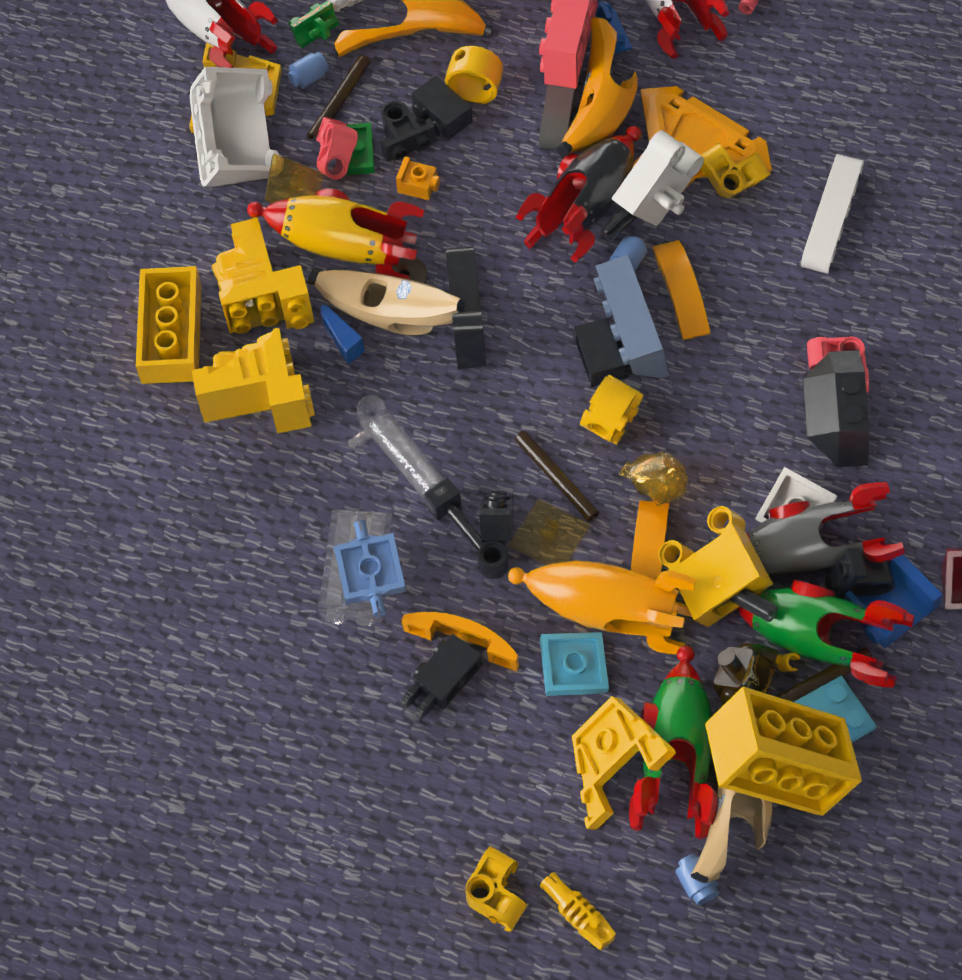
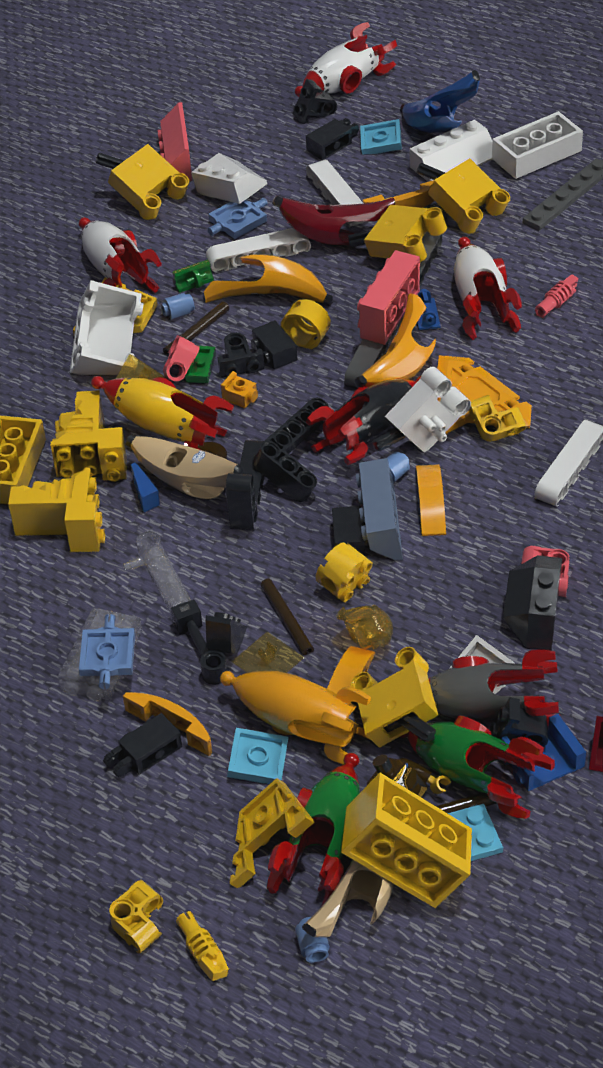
camera: 10 degrees right, 15 degrees down
(486, 271) = (274, 458): none -> black beam

